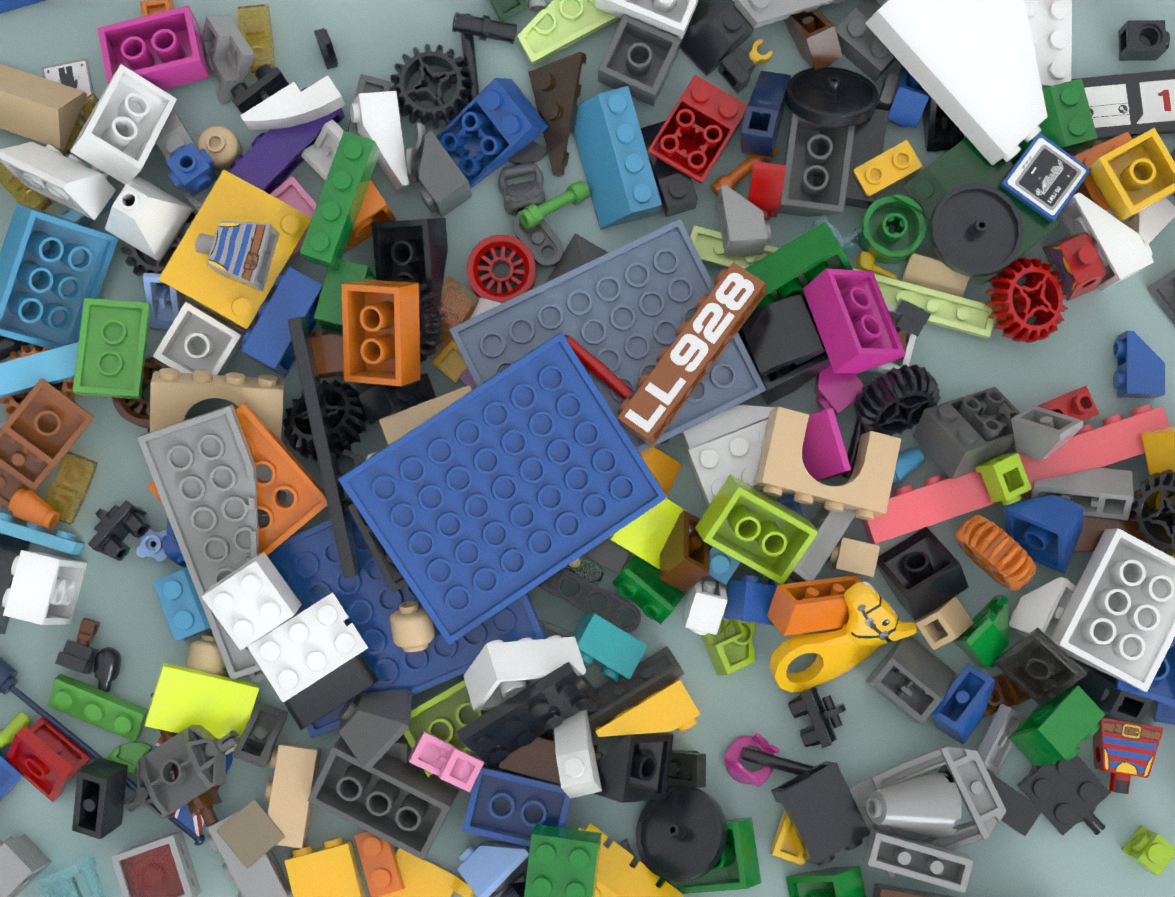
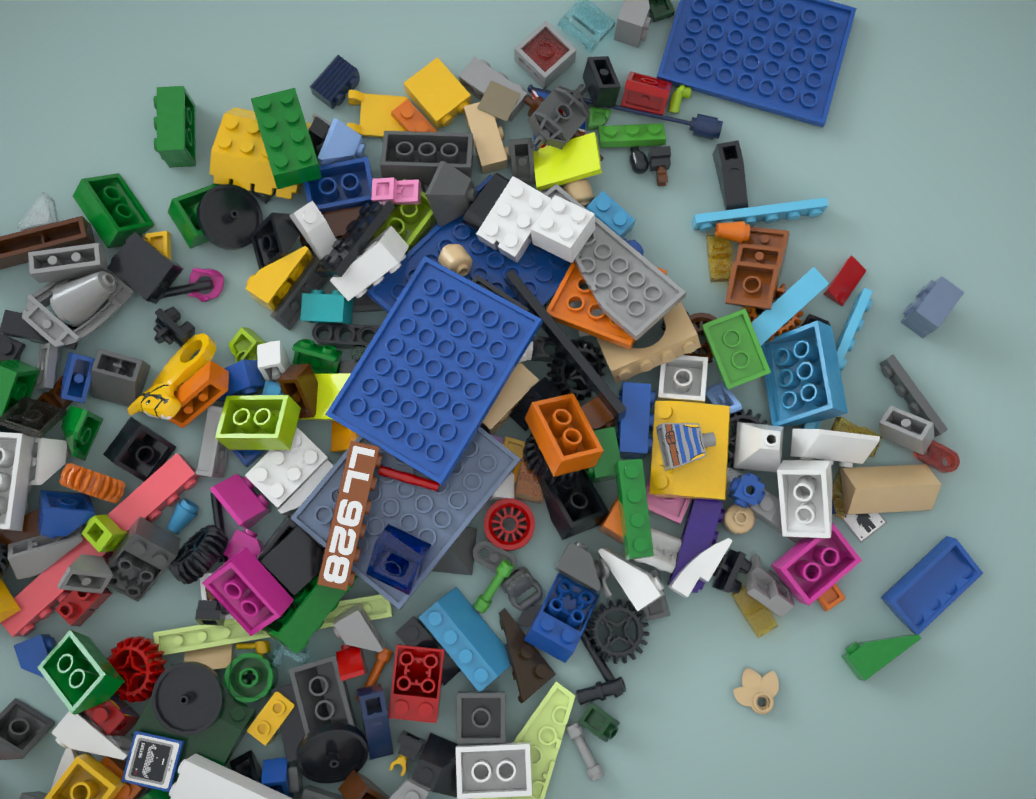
camera: 155 degrees right, 5 degrees down
(44, 588) = (699, 183): white brick -> none
(116, 526) = (678, 247): black hips -> none
(145, 548) = (652, 241): light blue plate -> none
(326, 48) = (702, 624): black tile -> none
(653, 273) = (398, 559): none -> clear blue slope
(687, 769) = (242, 258): pearl dark grey slope -> none
(784, 472) = (196, 480): tan arch -> none
(855, 557) = (186, 440): tan brick -> none
(944, 623) = (109, 422): tan brick -> none
(1095, 318) = (80, 673): none -> green slope

